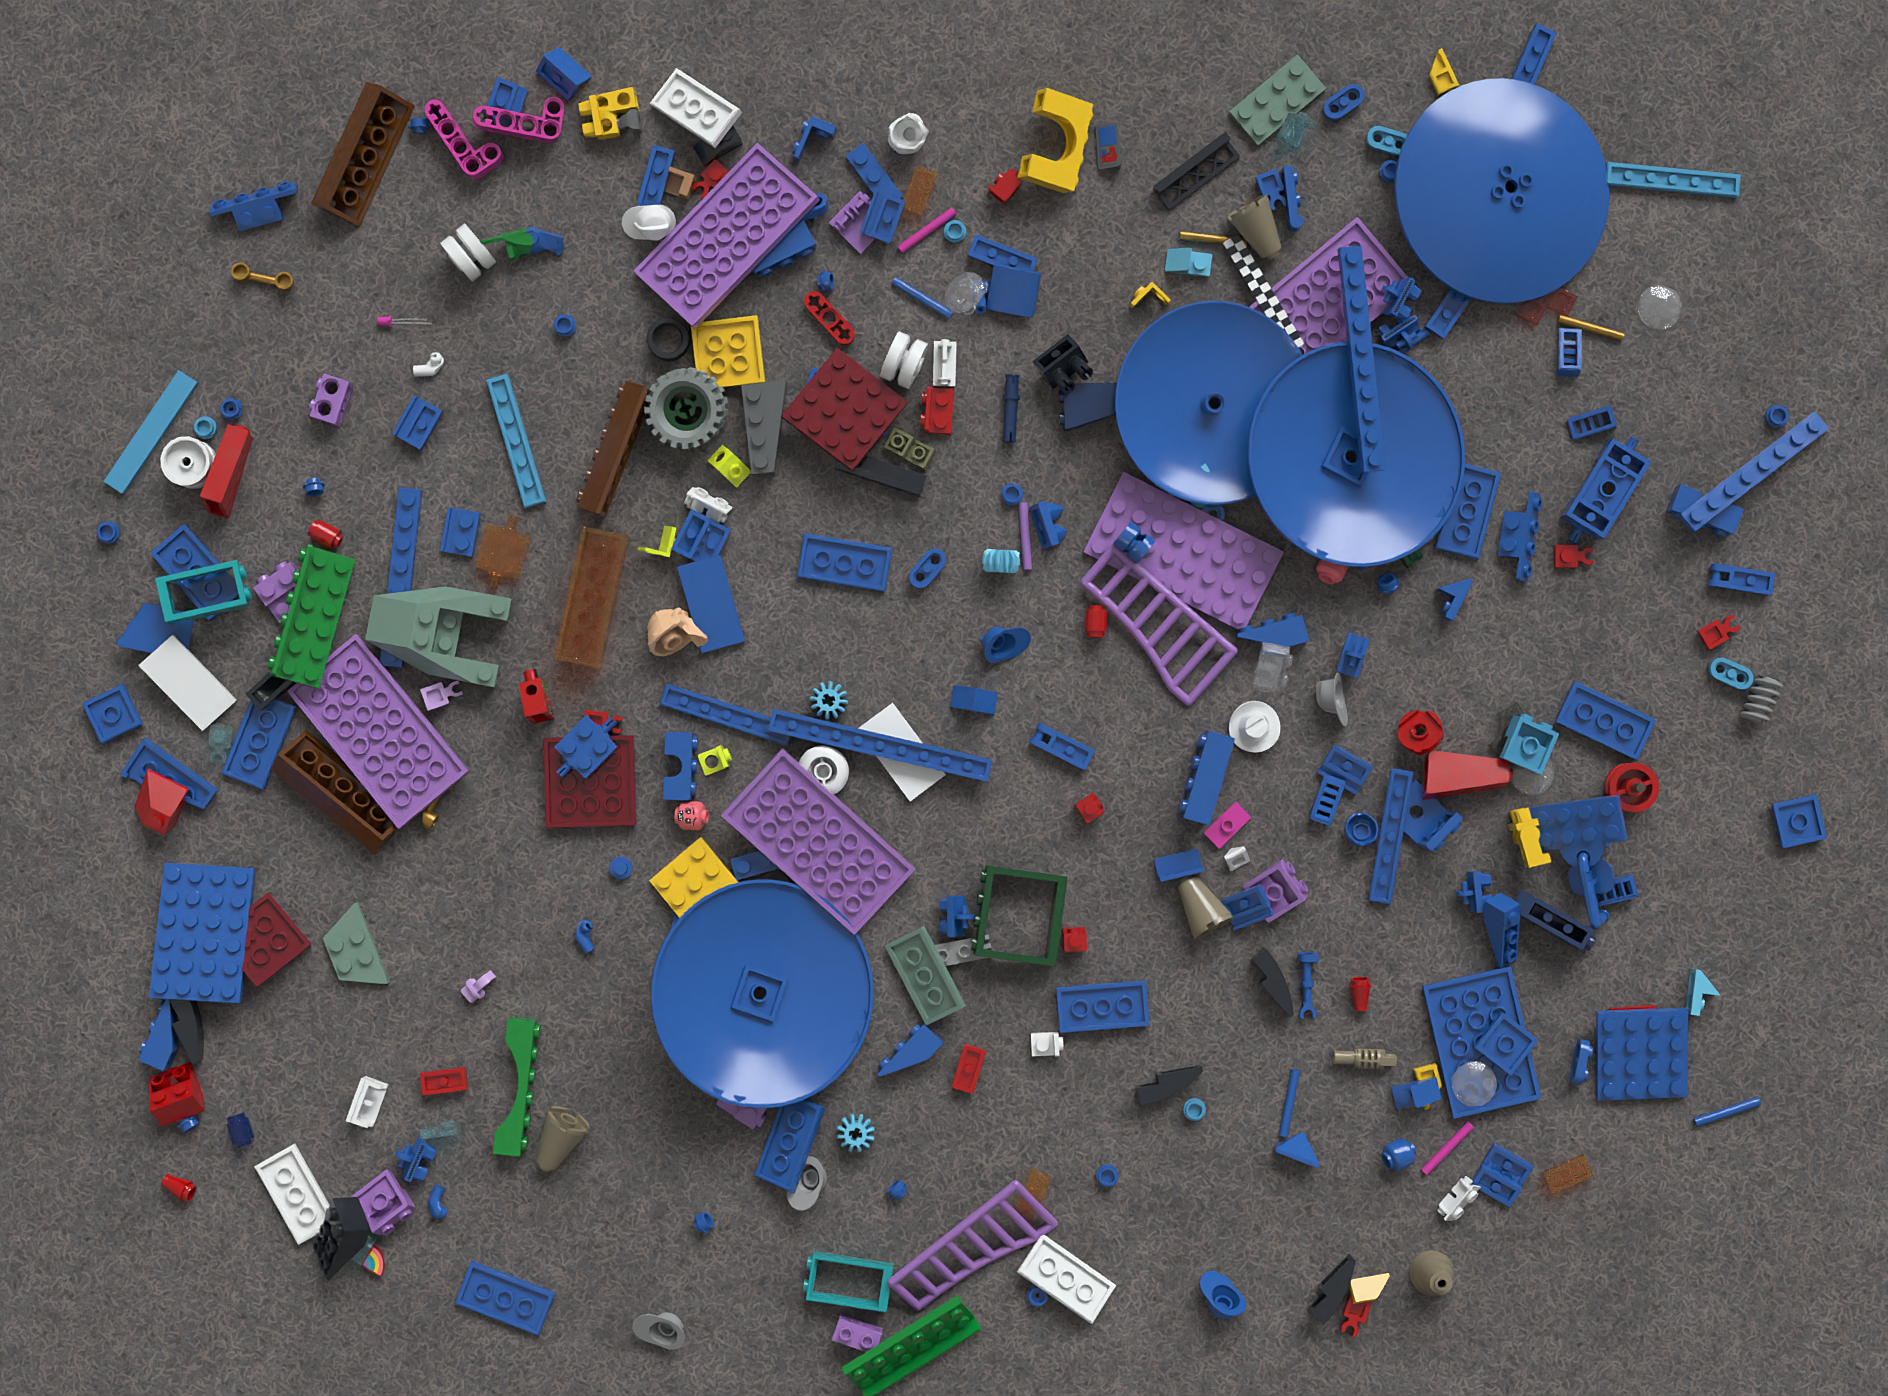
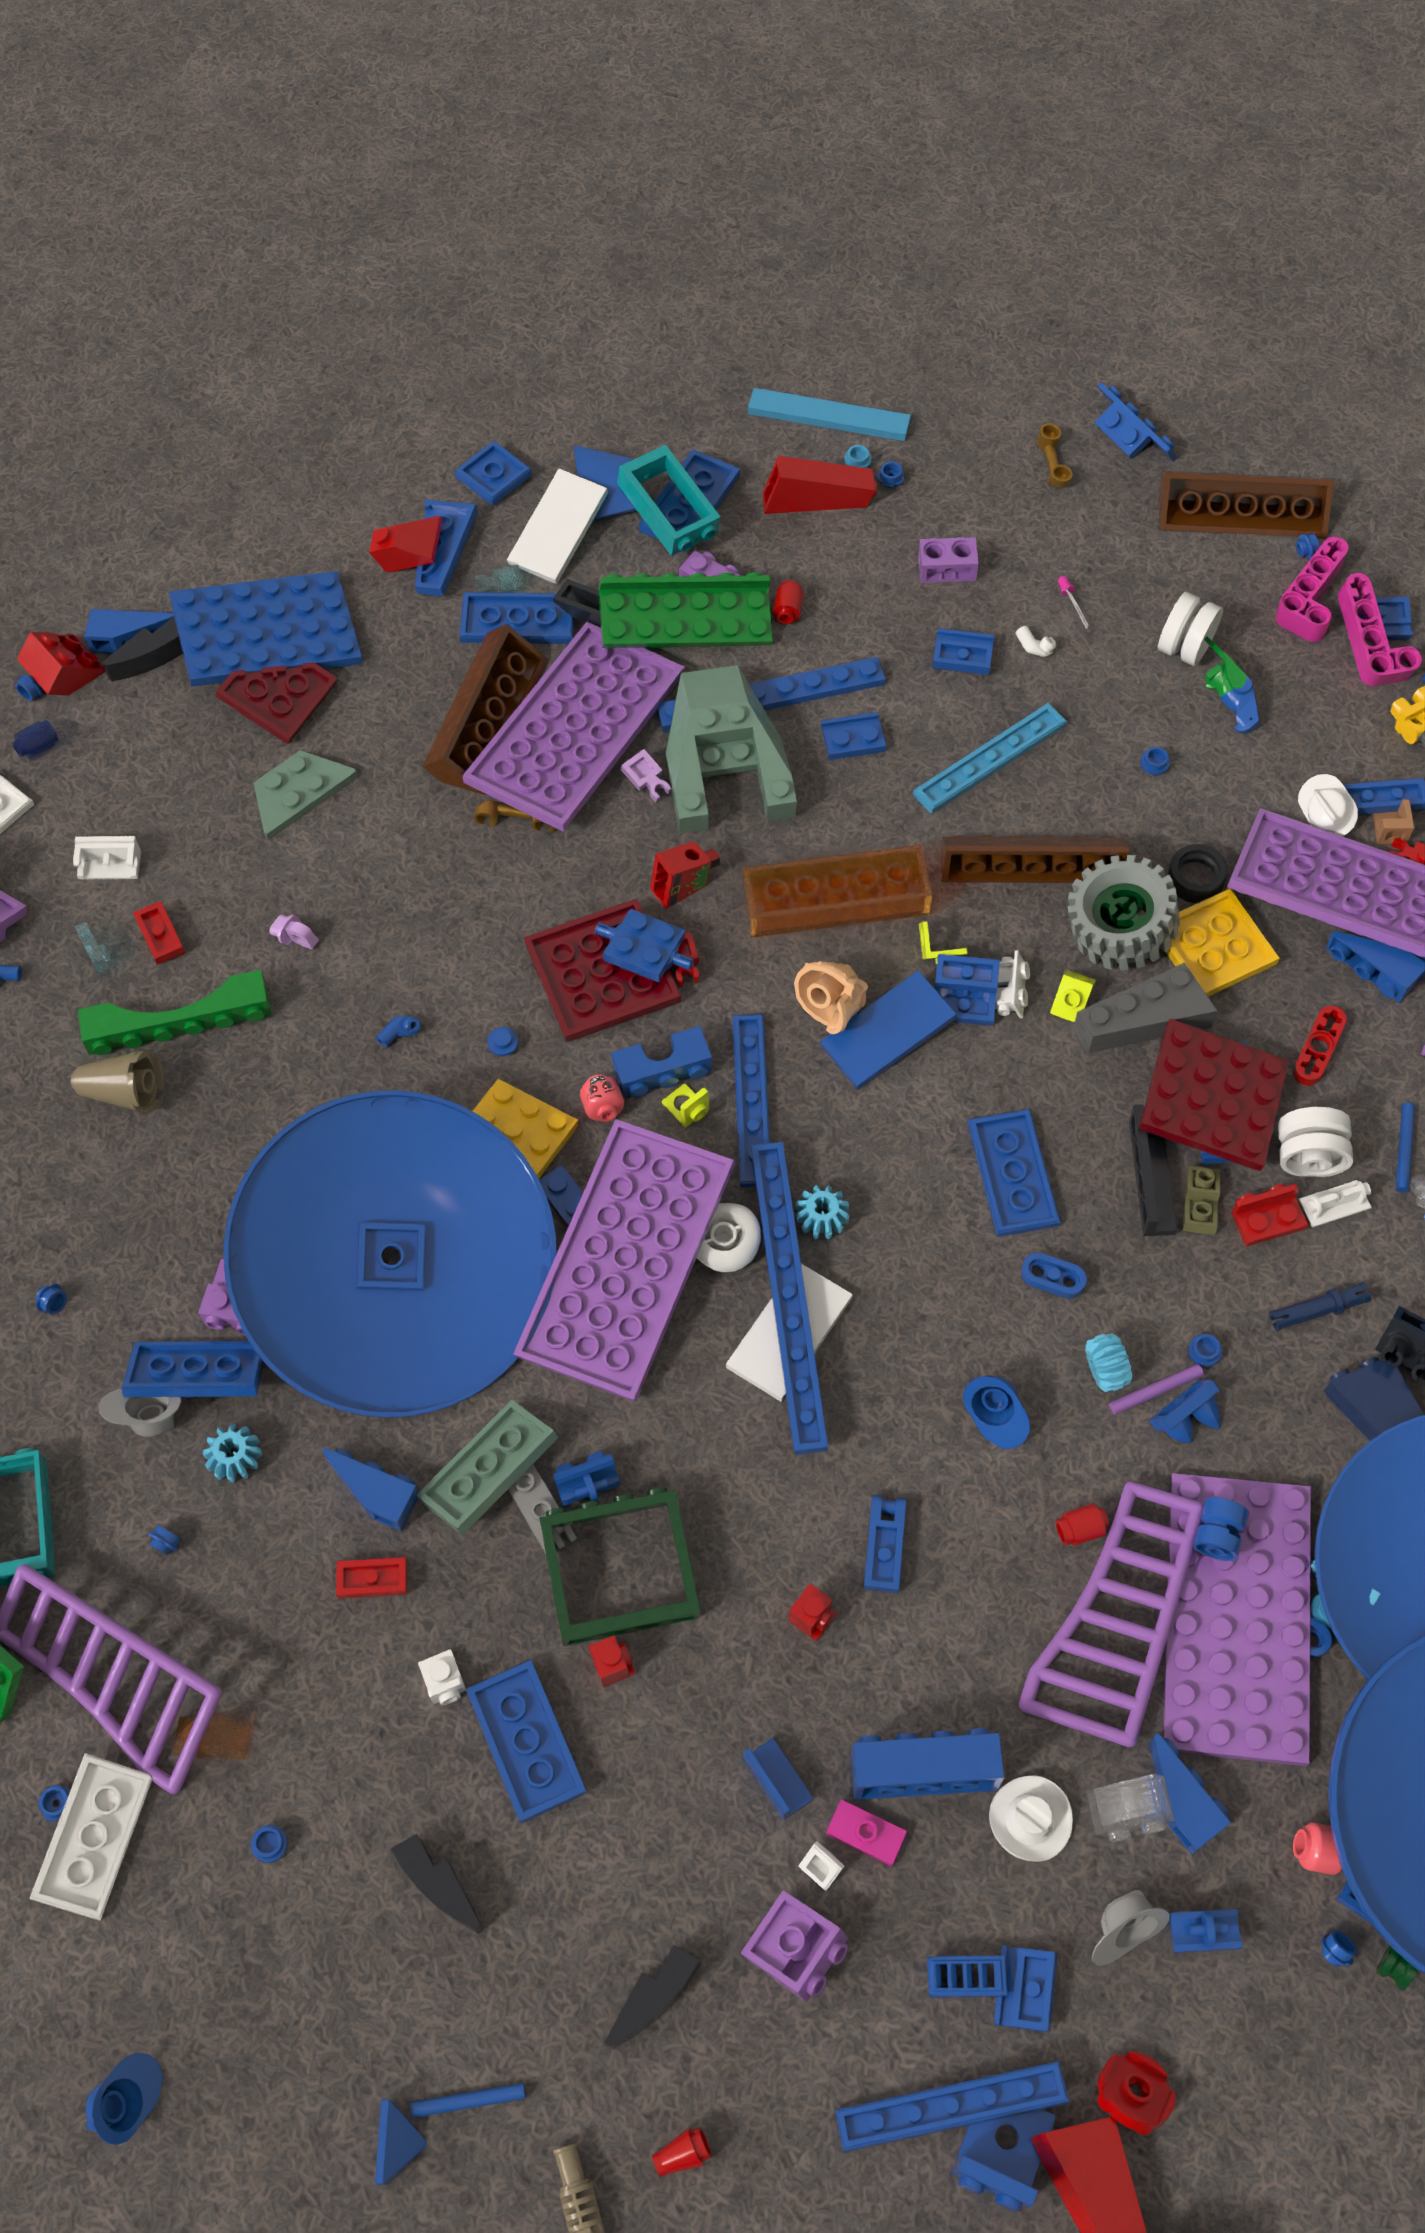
camera: 70 degrees right, 25 degrees down
(108, 532) = (698, 409): blue plate -> none
(177, 456) = (813, 439): white wheel -> none
(314, 487) = (838, 576): blue plate -> none
(412, 1168) = (33, 933): blue hips -> none
(503, 551) = (849, 785): clear orange plate -> none
(825, 281) = (1364, 1024): blue plate -> none
(974, 699) = (902, 1401): blue slope -> none
(1194, 1109) = (411, 1944): dark azure plate -> none
(1202, 907) = (725, 1836): dark tan cone -> none
(1248, 906) = (753, 1907): blue plate -> none
(1306, 959) = (668, 2055): blue piece -> none
(1364, 834) = (934, 2060): blue hair -> none
(1457, 593) = (1378, 2067): blue slope -> none

